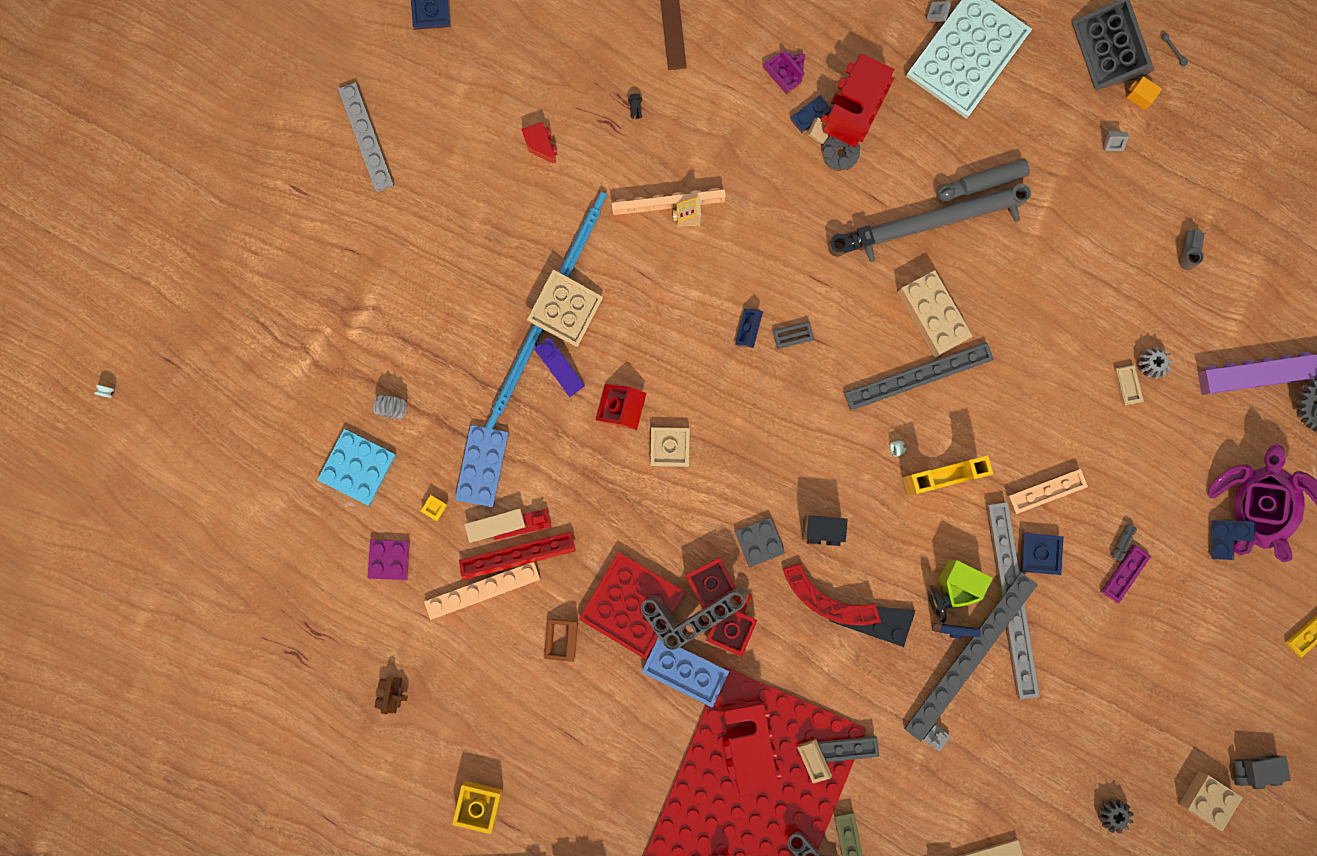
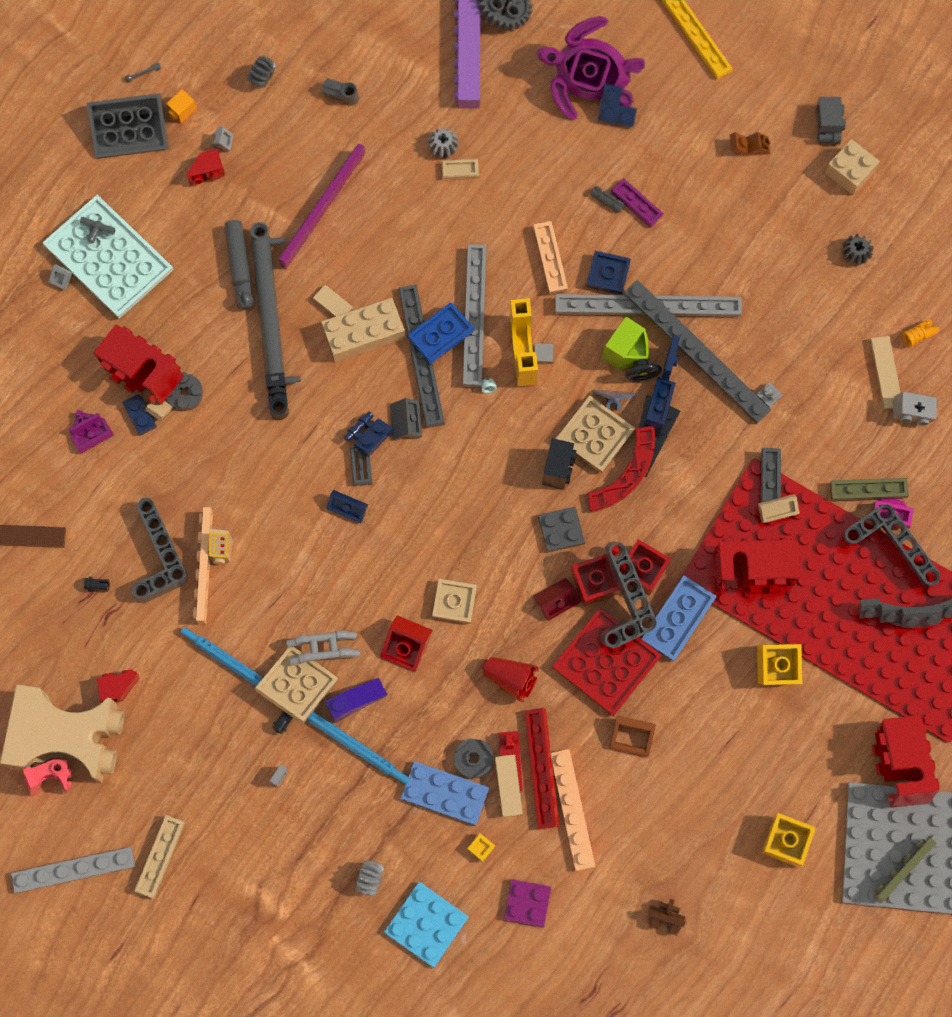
camera: 85 degrees left, 10 degrees down
(387, 212) = (160, 856): none -> tan plate
(440, 83) = (35, 776): none -> coral tile
(476, 307) = (279, 775): none -> light grey tile
(487, 82) = (43, 733): none -> tan brick
(507, 488) = (473, 747): none -> dark grey plate
(526, 301) = (282, 723): none -> black pin
(595, 320) = (315, 655): none -> light grey piece
(601, 513) = (511, 676): none -> red cone
(652, 779) = (779, 664): none -> yellow brick
(675, 159) = (163, 552): none -> dark grey beam
(688, 547) = (557, 599): none -> dark red panel
(824, 341) = (372, 437): none -> dark blue plate
(848, 371) = (406, 419): none -> dark grey panel
(864, 563) = (596, 434): none -> tan plate
(907, 577) = (614, 396): none -> sand blue piece
(907, 625) = (660, 403): none -> dark blue plate
(942, 499) = (544, 353): none -> light grey tile
(944, 391) = (440, 333): none -> blue tile
(959, 279) = (332, 302): none -> tan tile
(971, 423) = (475, 315): none -> light grey plate
(996, 34) = (96, 227): none -> dark grey piece
(1062, 252) = (322, 206): none -> magenta tile
(1081, 129) = (206, 167): none -> red slope
(1198, 165) = (261, 71): none -> dark grey gear
(1215, 689) = (751, 145): none -> dark orange slope

